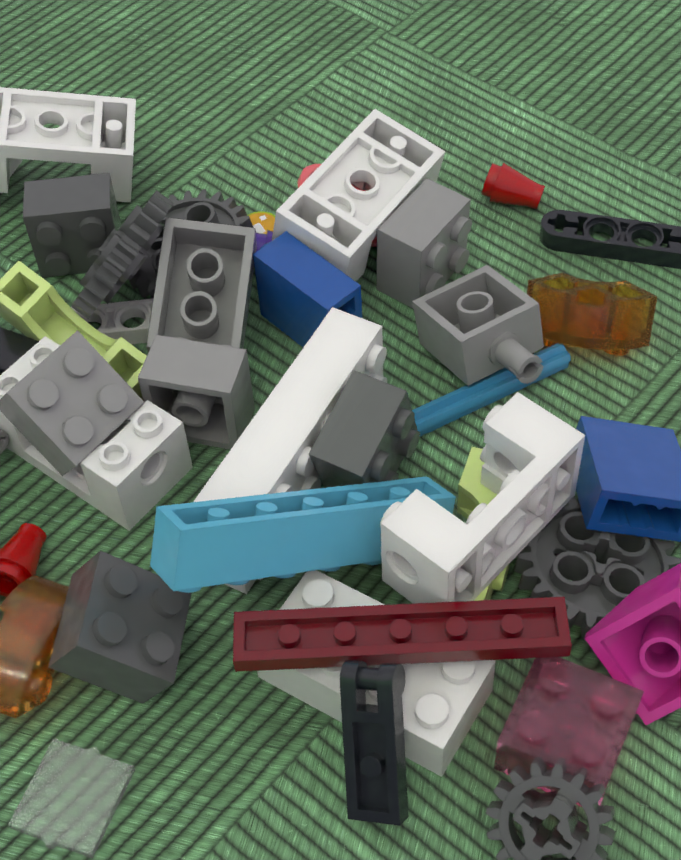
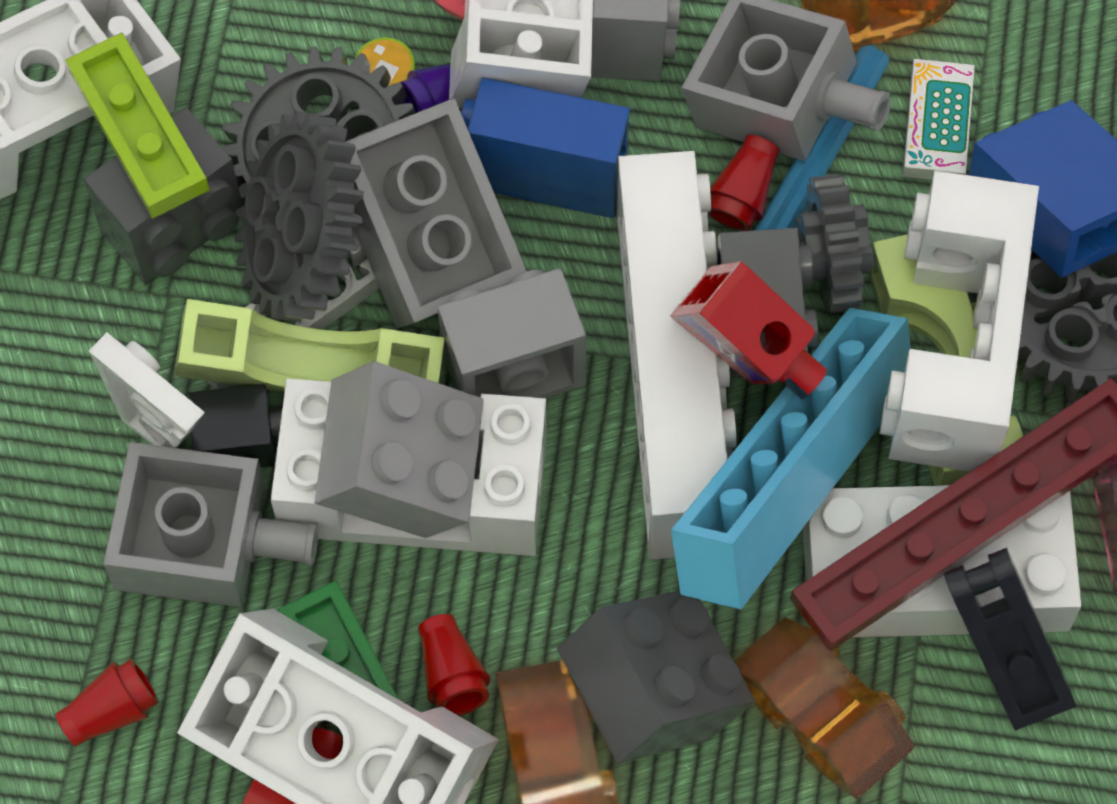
camera: 35 degrees left, 15 degrees up
(68, 164) = (137, 125): none -> lime plate
(221, 723) = (837, 719): none -> clear orange brick
(316, 412) = (731, 311): none -> red torso
(423, 378) = (744, 184): none -> red cone
(444, 432) = (837, 242): none -> dark grey gear
(587, 396) = (938, 118): none -> tile

